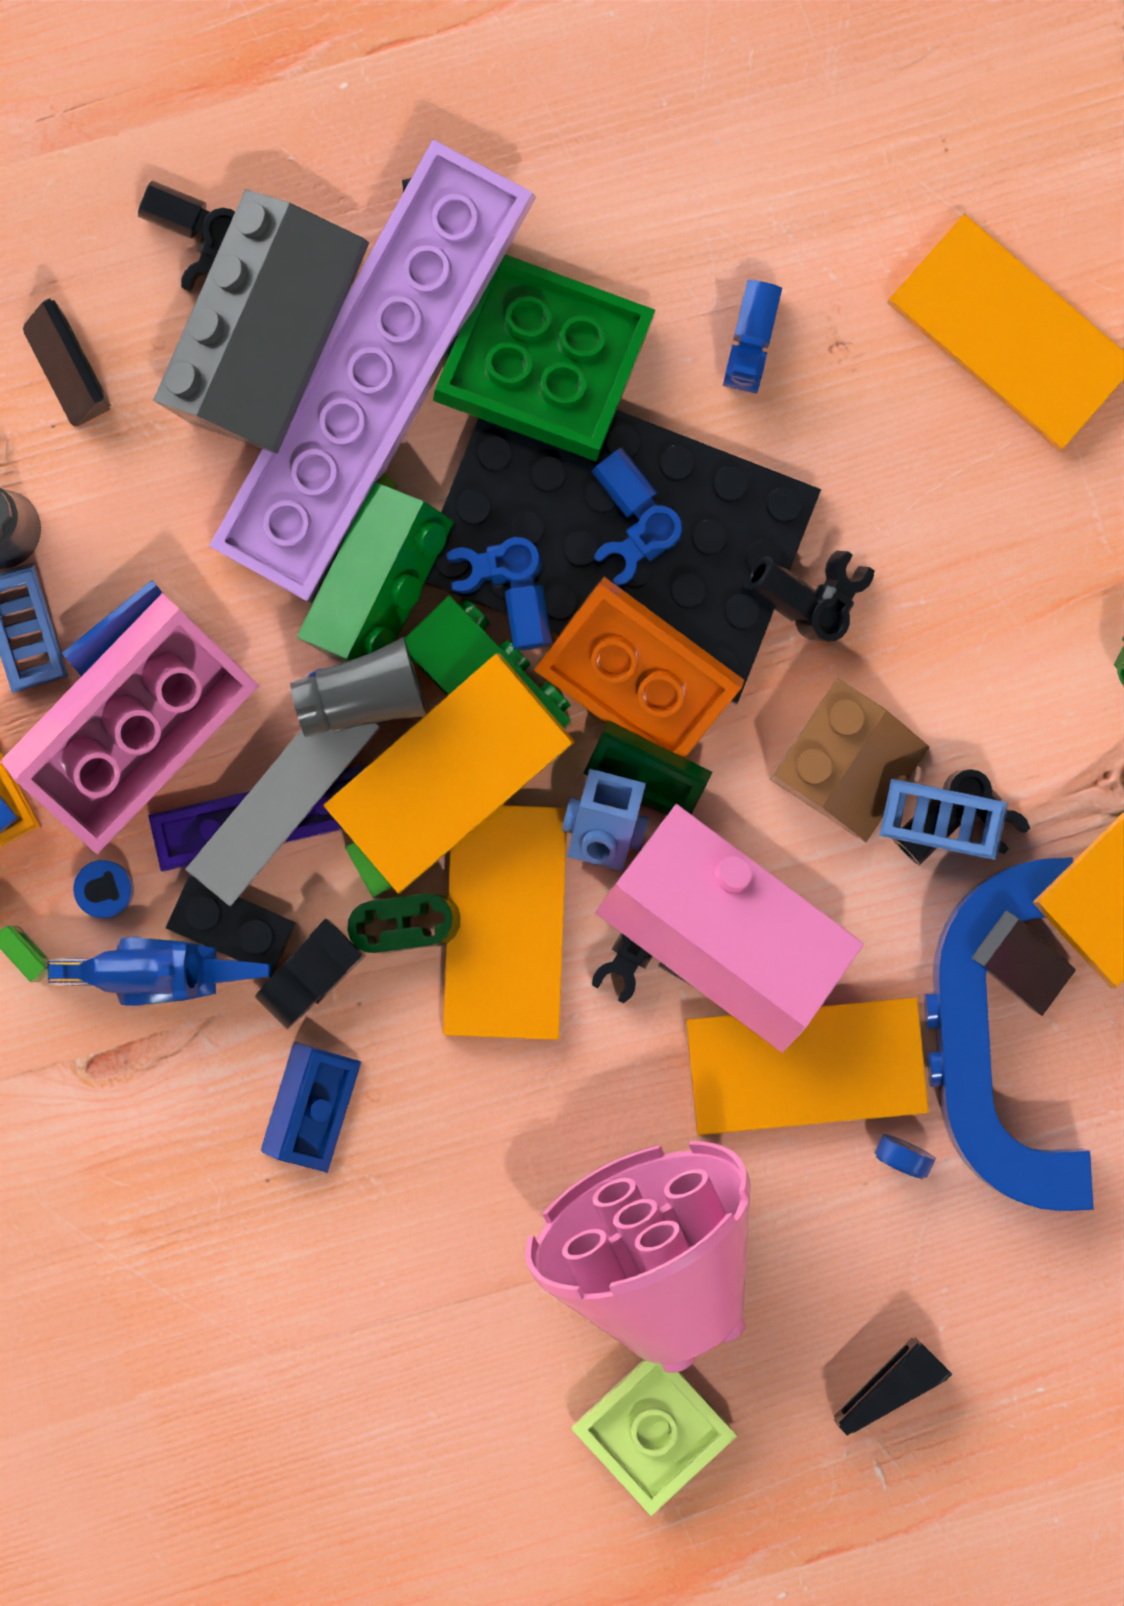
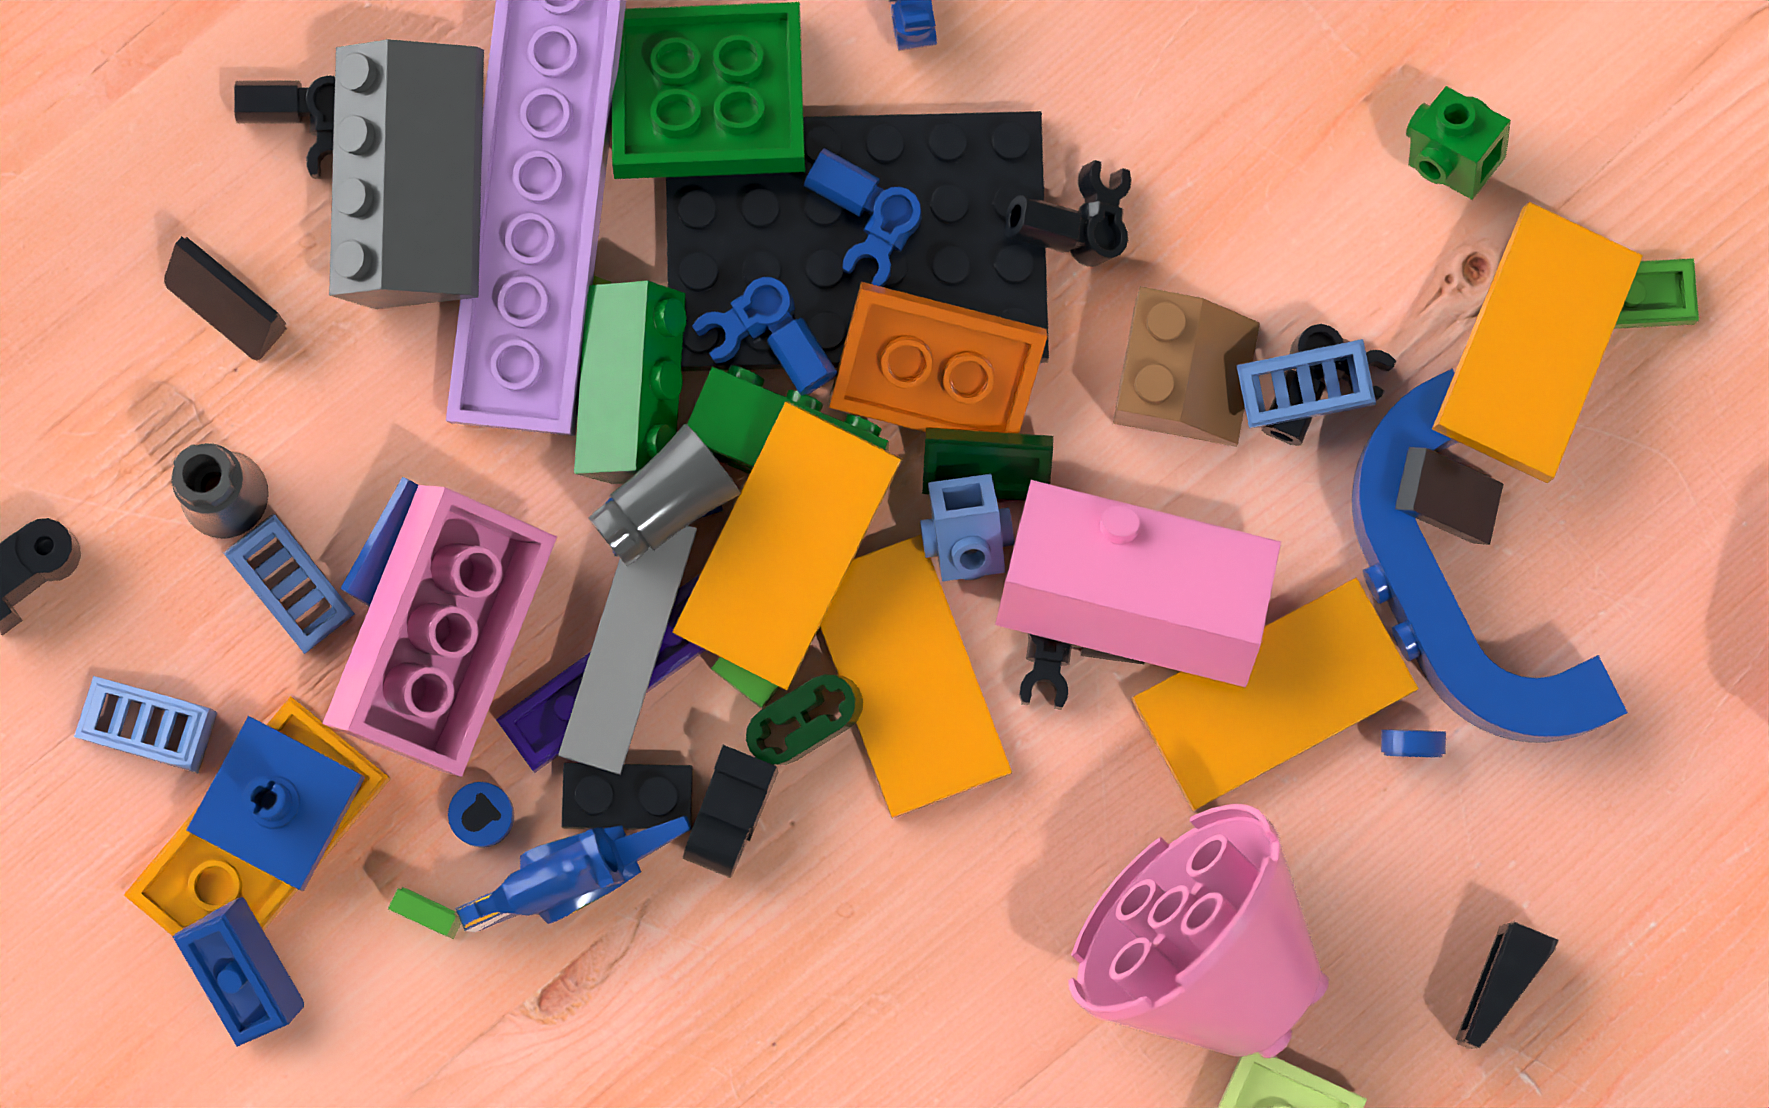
camera: 25 degrees left, 5 degrees down
(310, 1107) = (786, 948): blue slope -> none

